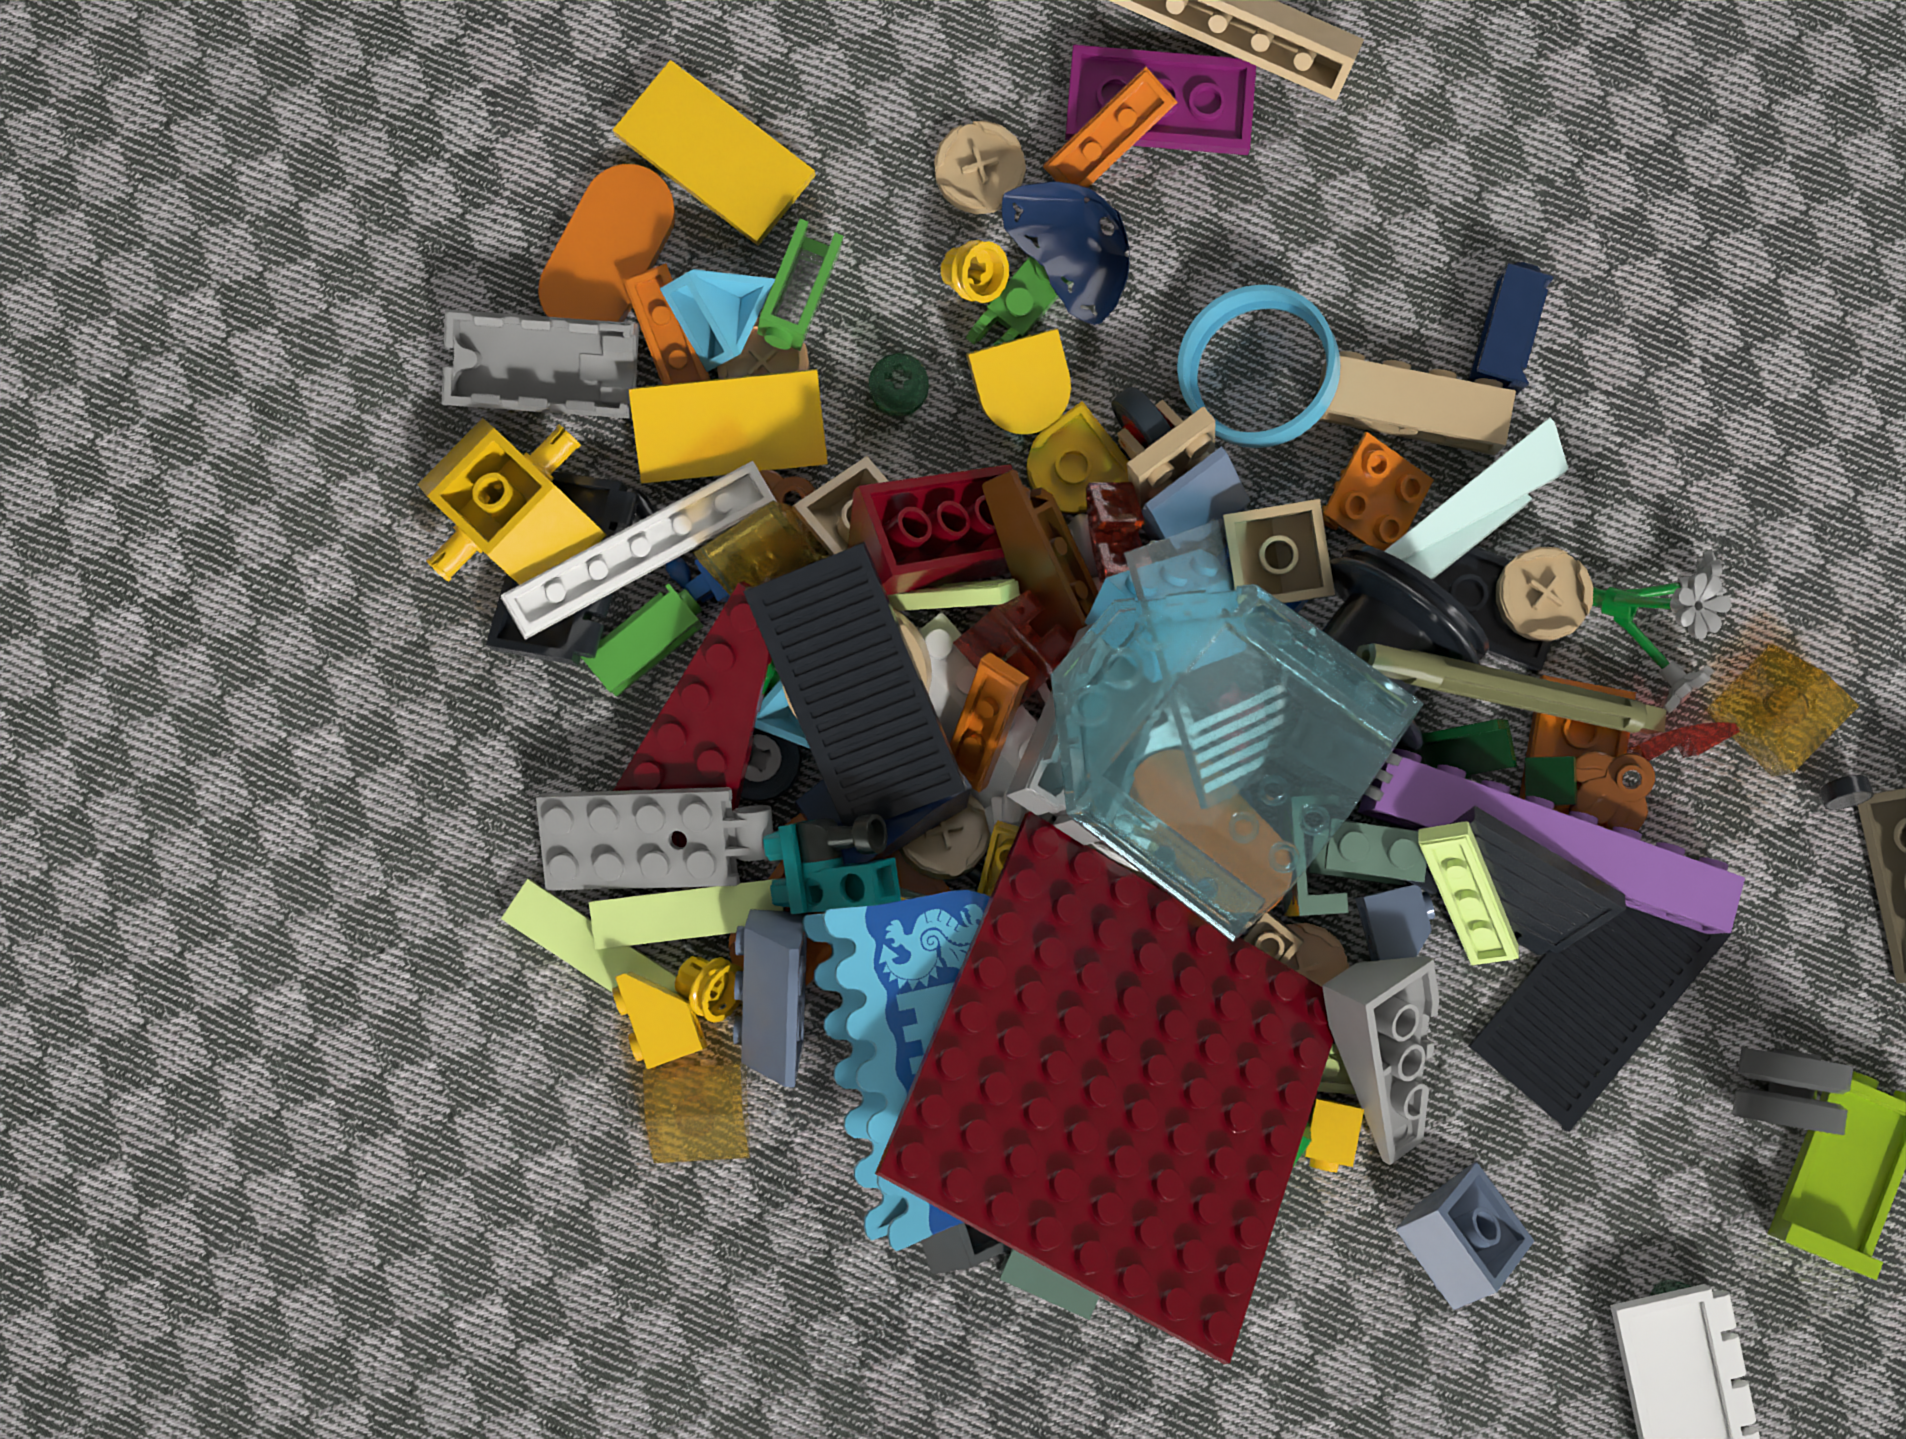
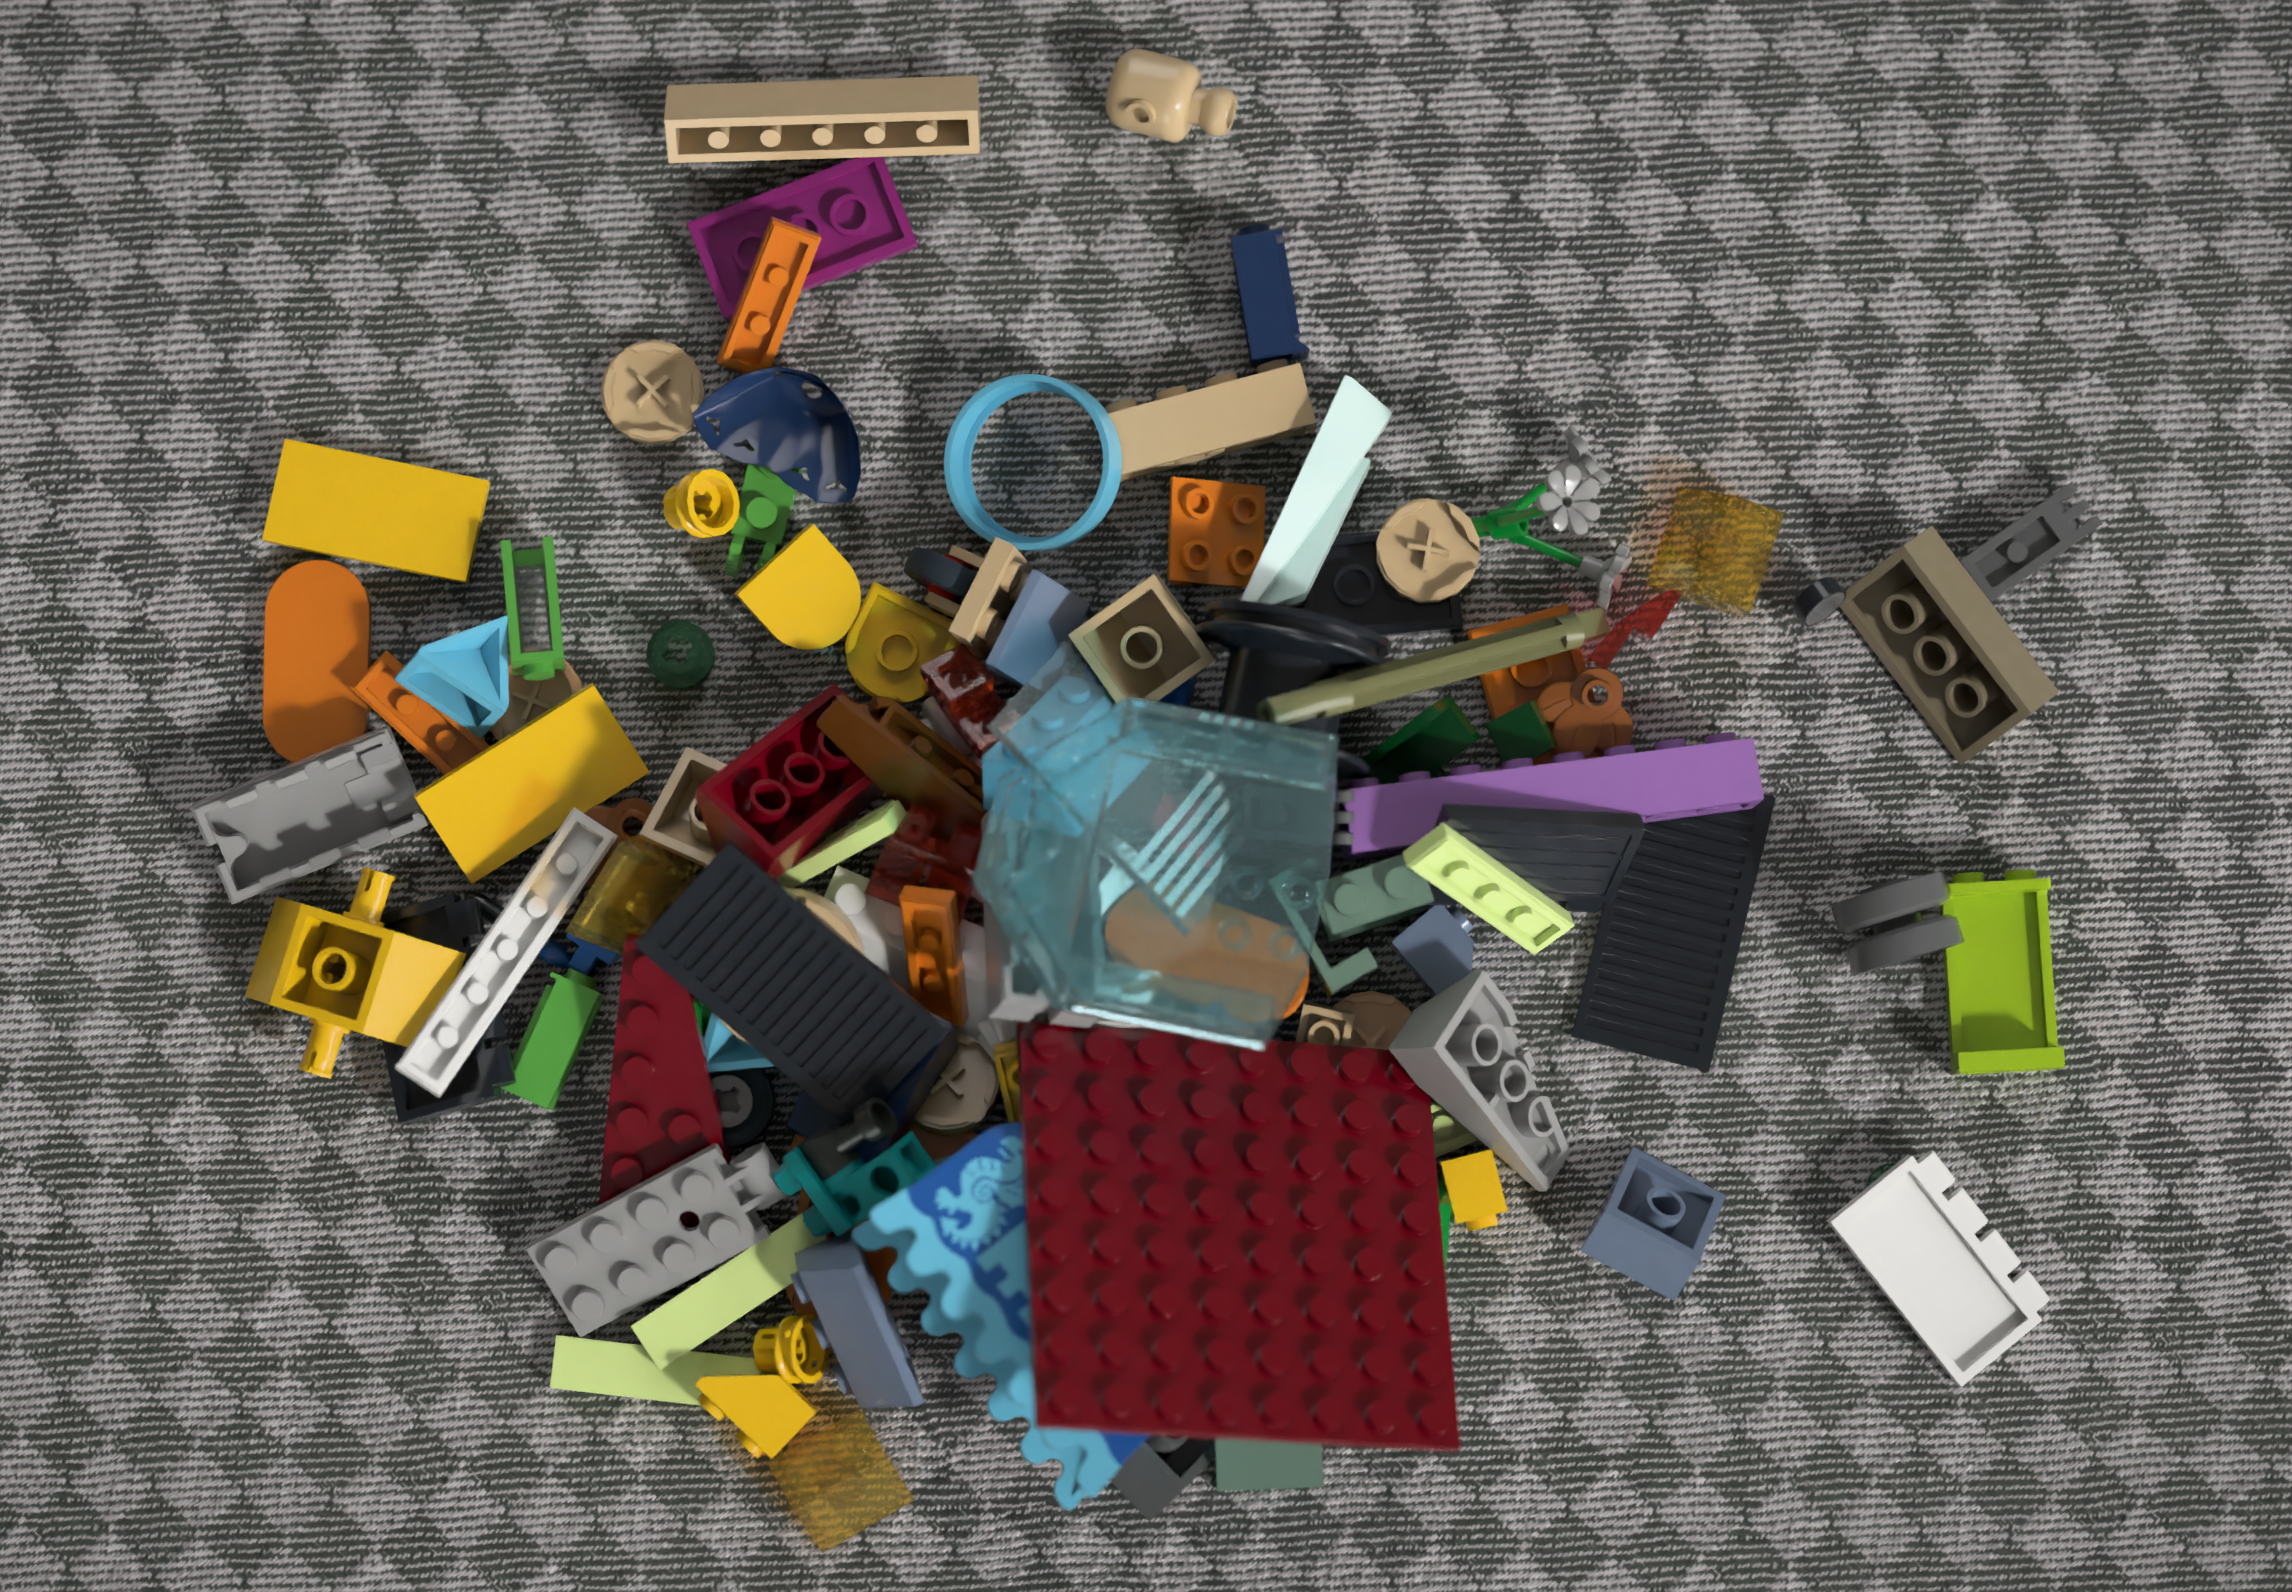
camera: 25 degrees left, 0 degrees up
(1505, 128) = (1165, 98): none -> tan piece

